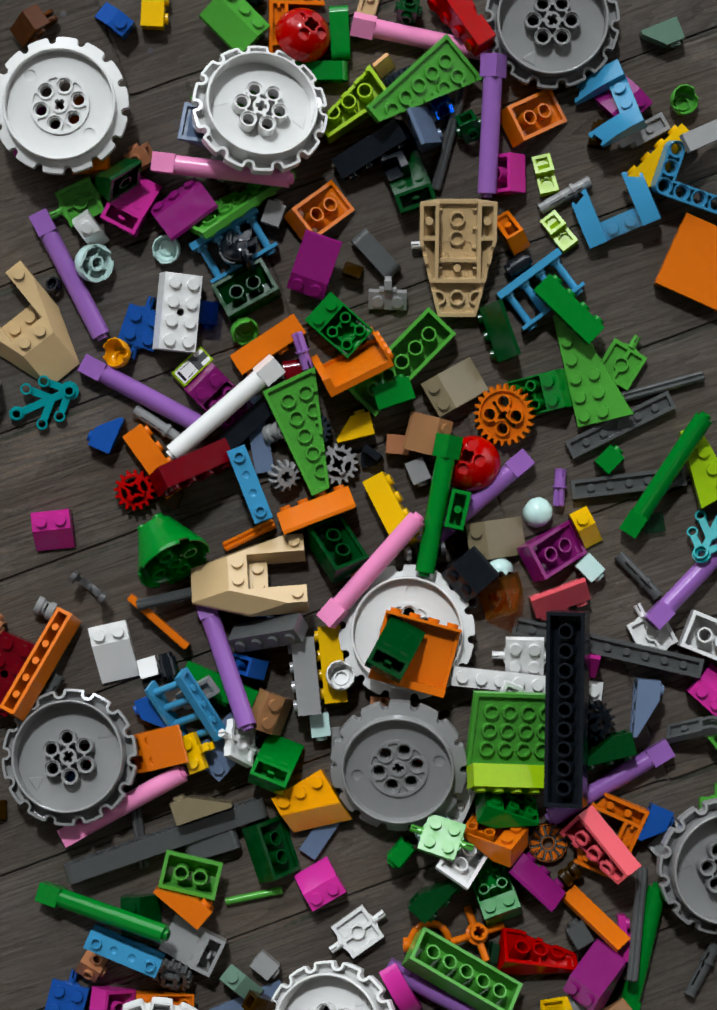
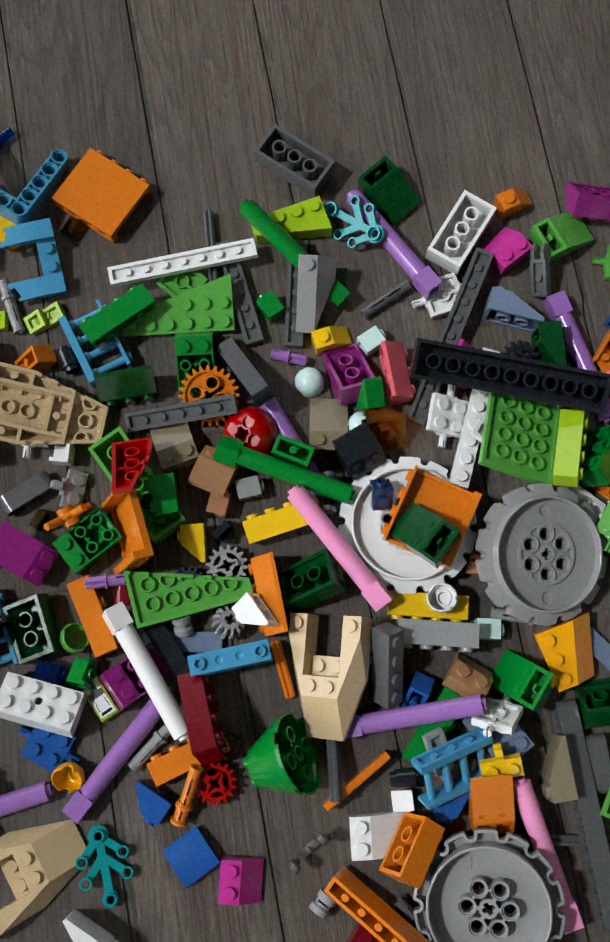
camera: 85 degrees left, 10 degrees down
(65, 480) = (191, 857): none -> blue slope
(107, 681) = (412, 849): none -> orange brick
(111, 465) = (184, 803): none -> orange pin
(212, 345) = (82, 673): none -> green brick
(297, 498) = (253, 611): none -> white slope
(358, 301) = (67, 516): none -> orange bar
(415, 355) = (128, 463): none -> red wedge
(419, 281) = (63, 455): none -> white panel
(429, 602) = (381, 494): none -> dark blue bracket
(480, 391) = (181, 412): none -> dark grey plate
(530, 576) = (371, 394): none -> green slope
(533, 445) = (244, 371): none -> black beam
(636, 501) = (314, 284): none -> light grey wedge
(638, 362) = (182, 262): none -> white plate
(661, 240) = (75, 228): none -> dark brown slope

